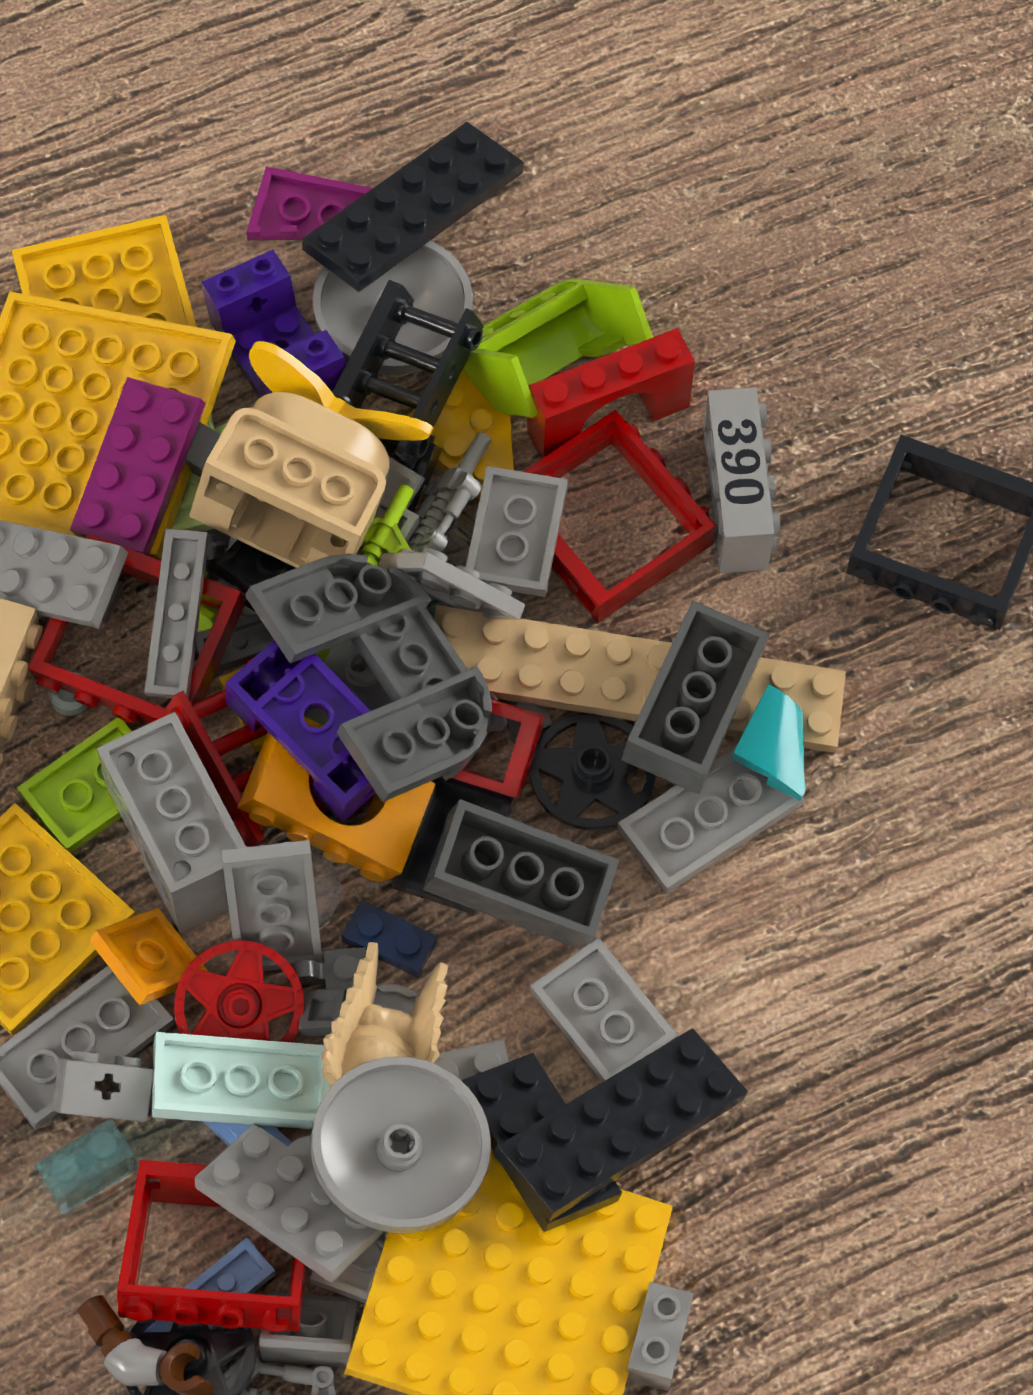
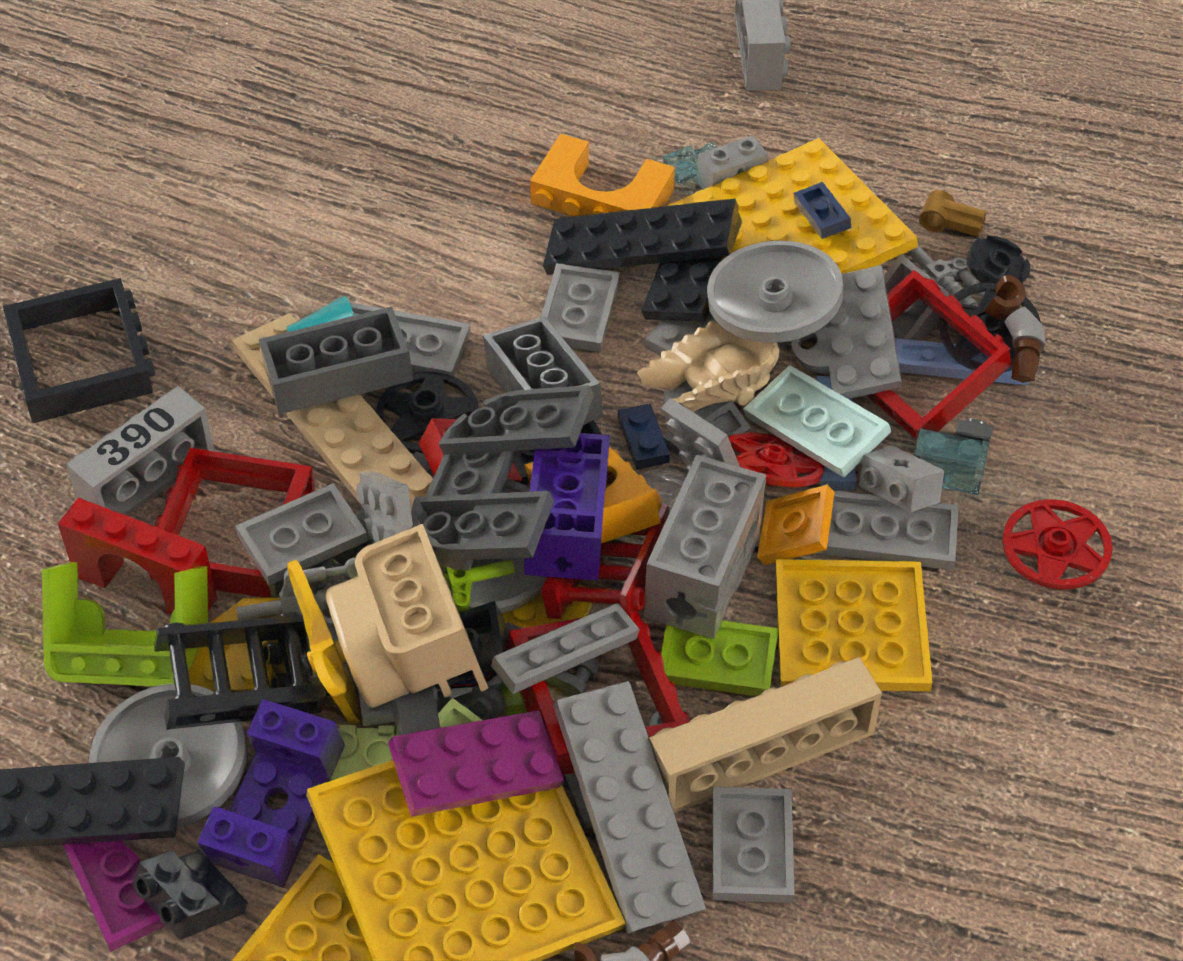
camera: 130 degrees left, 15 degrees down
(87, 1208) = (974, 429): none -> dark grey plate
(251, 229) = (187, 892): none -> black plate
(470, 1305) = (822, 210): none -> dark blue plate
(714, 1305) = (686, 161): none -> clear light blue plate
(791, 1134) = (559, 189): none -> light orange arch

